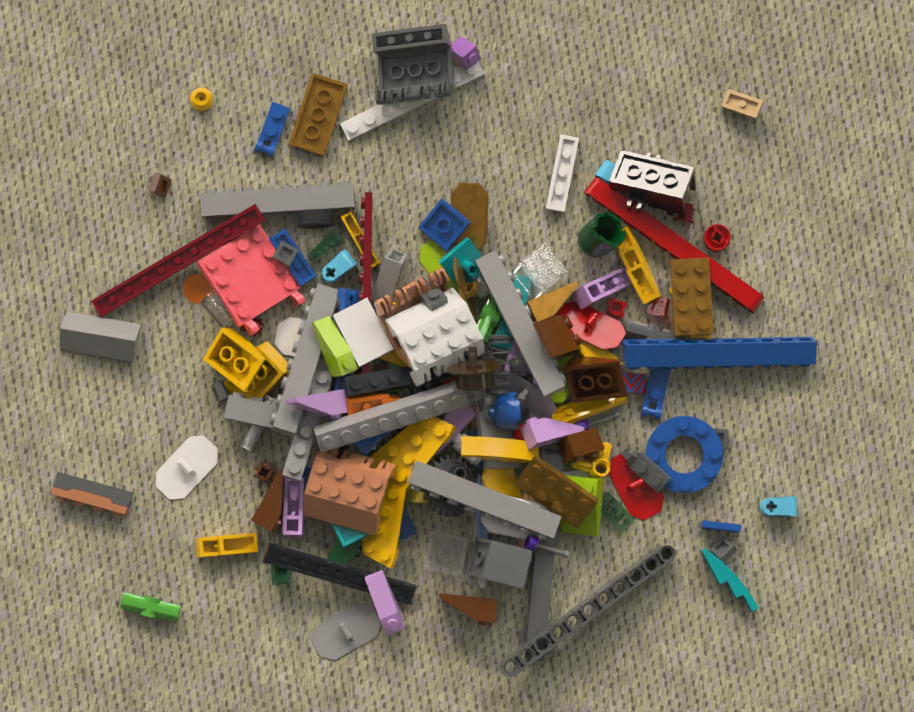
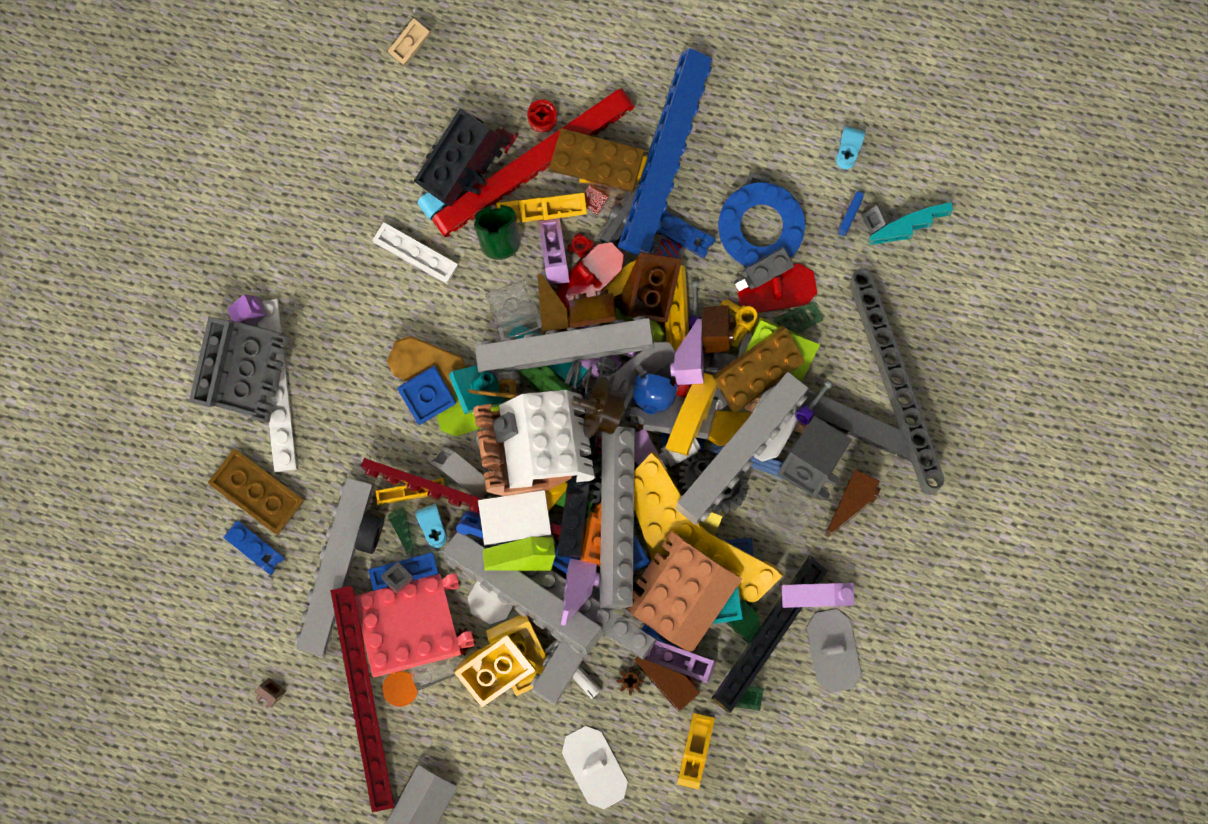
camera: 65 degrees left, 5 degrees down
(207, 100) = (198, 615): yellow plate -> none
(220, 391) = (522, 701): dark grey plate -> none

